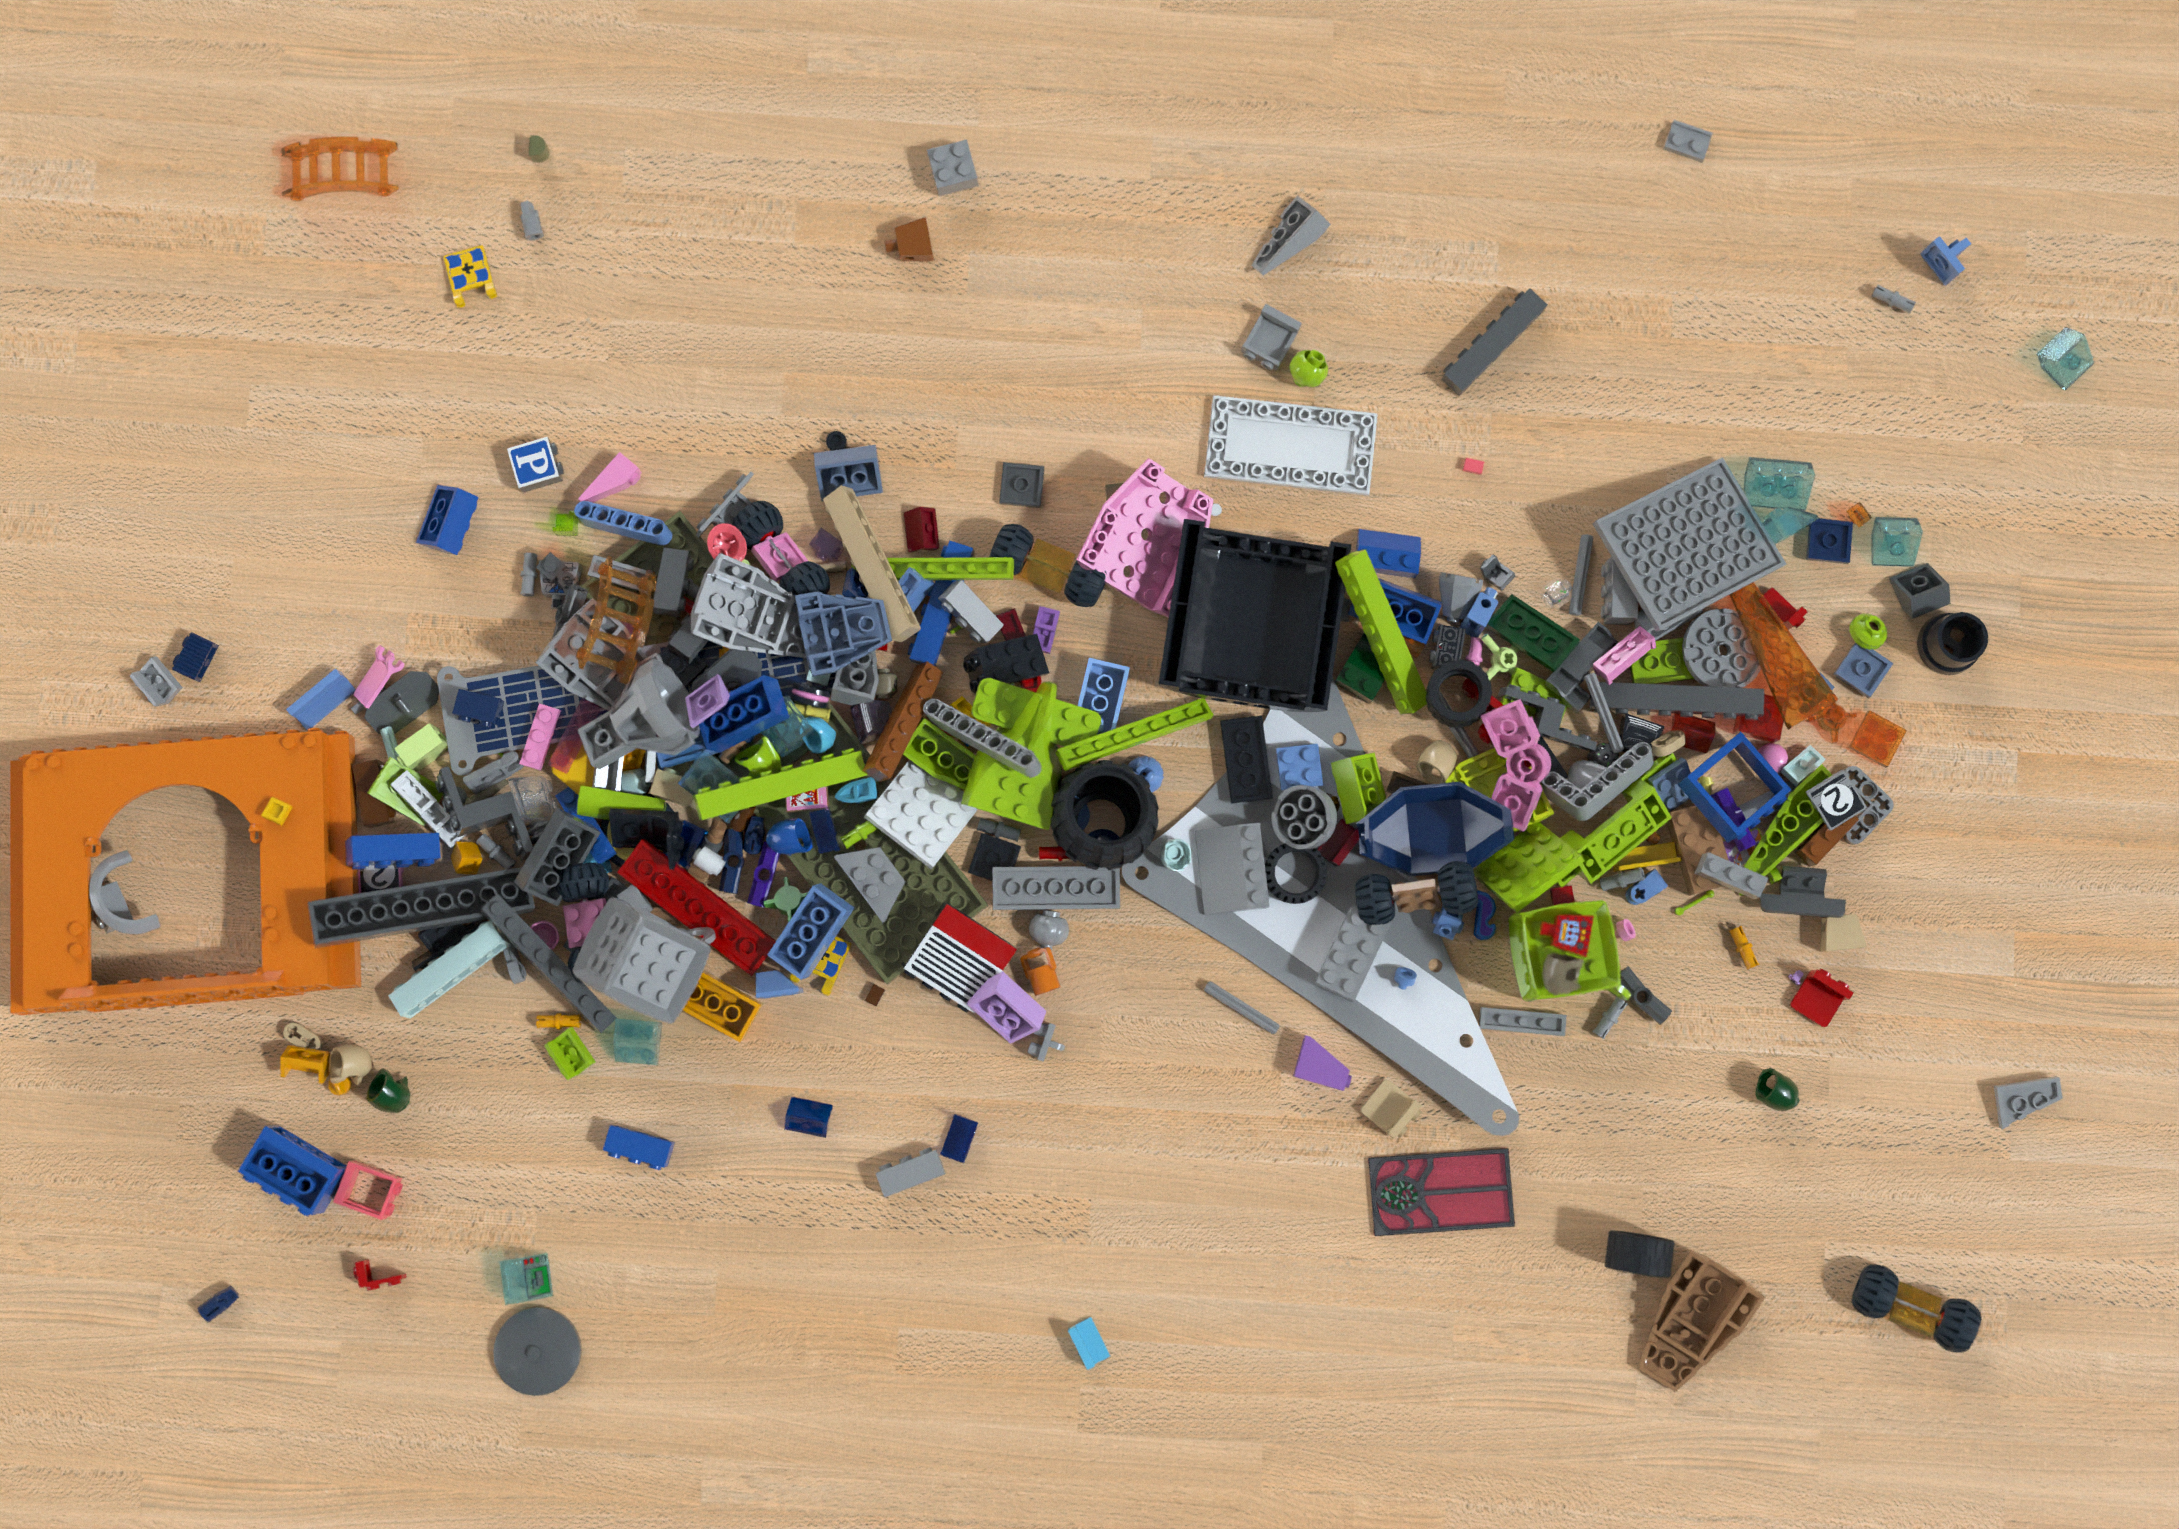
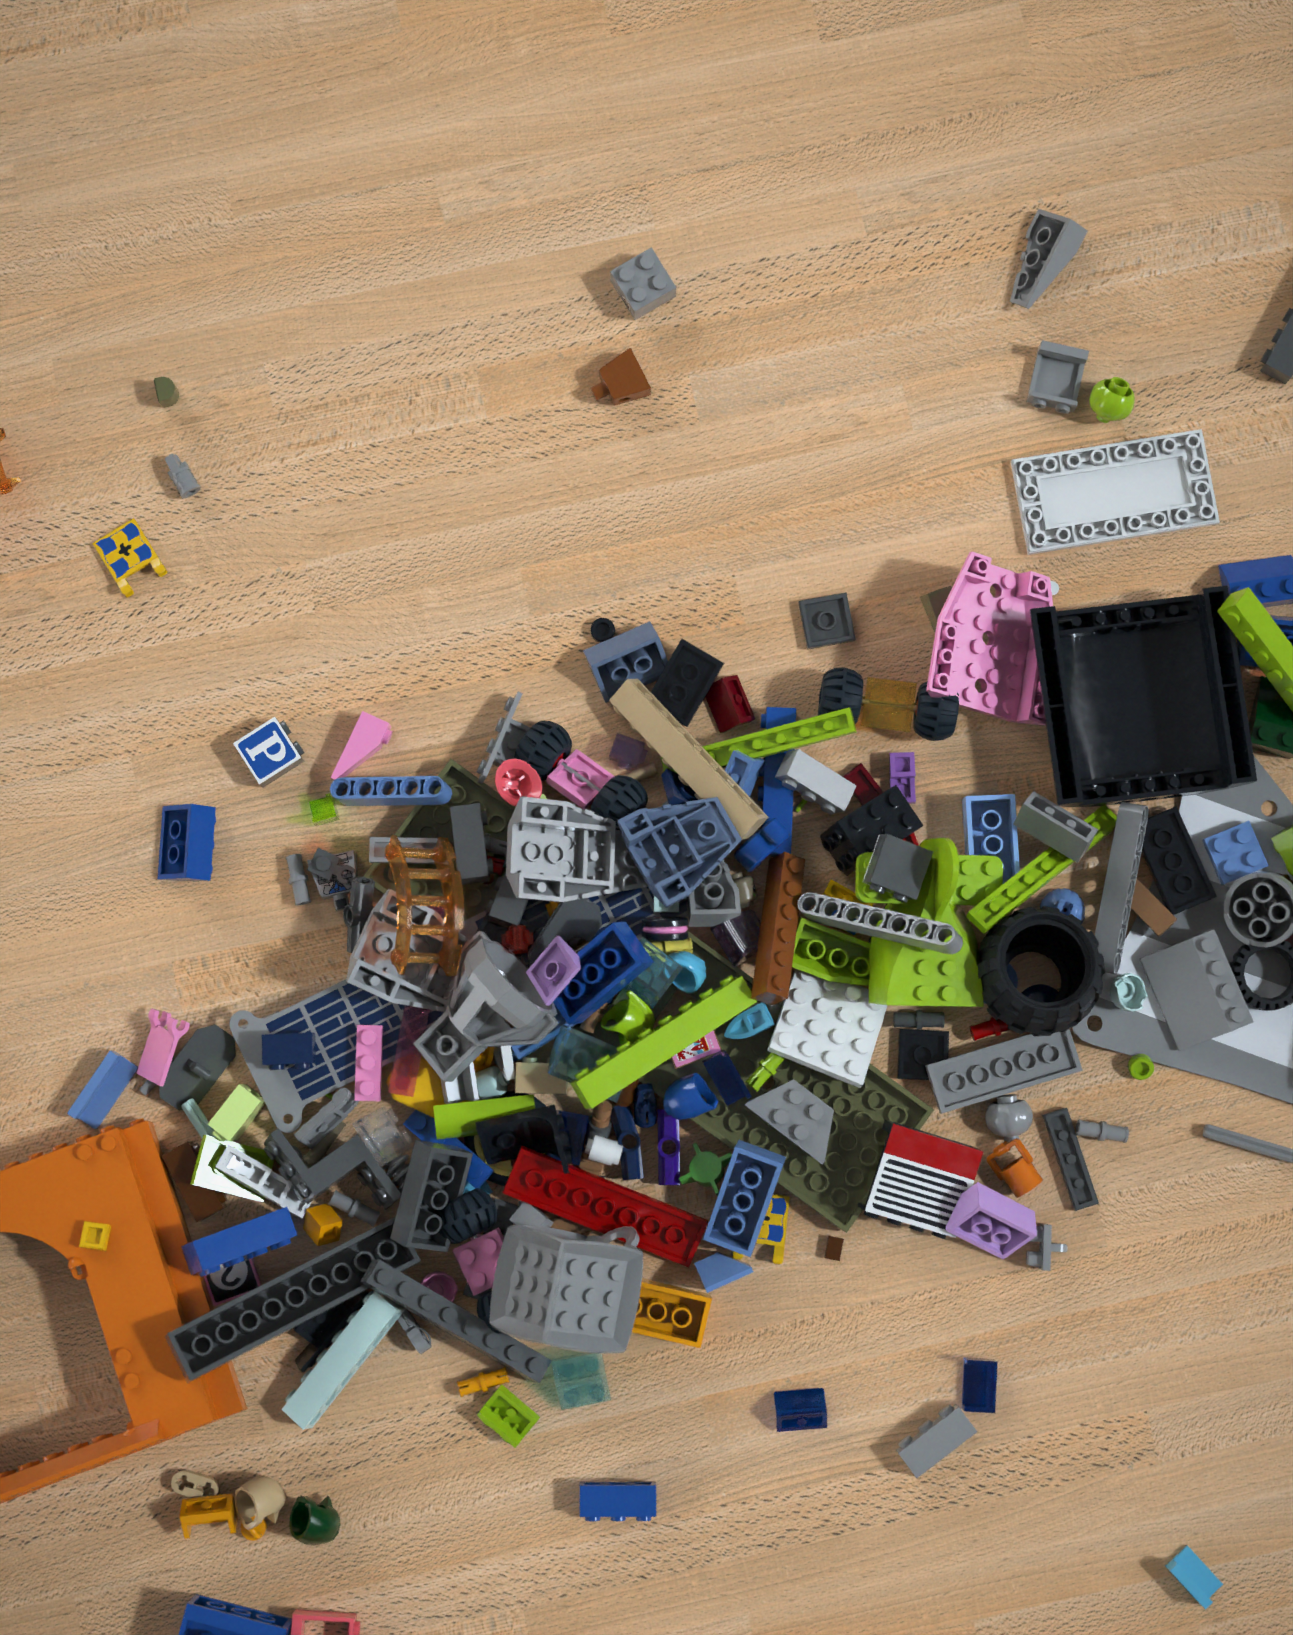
camera: 15 degrees left, 0 degrees up
(686, 669) = (517, 939): none -> clear red gear
(890, 501) = (686, 681): none -> black plate
(910, 650) = (761, 845): none -> blue animal
(1008, 696) = (897, 868): none -> dark grey piece
(1089, 978) = (1070, 1159): none -> dark grey tile
(1122, 962) = (1102, 1131): none -> light grey pin
(1152, 702) = (1055, 826): none -> light grey brick
(1169, 919) = (1140, 1066): none -> lime tile
(1194, 766) = (1120, 883): none -> light grey beam
(1210, 785) = (1151, 910): none -> medium nougat tile

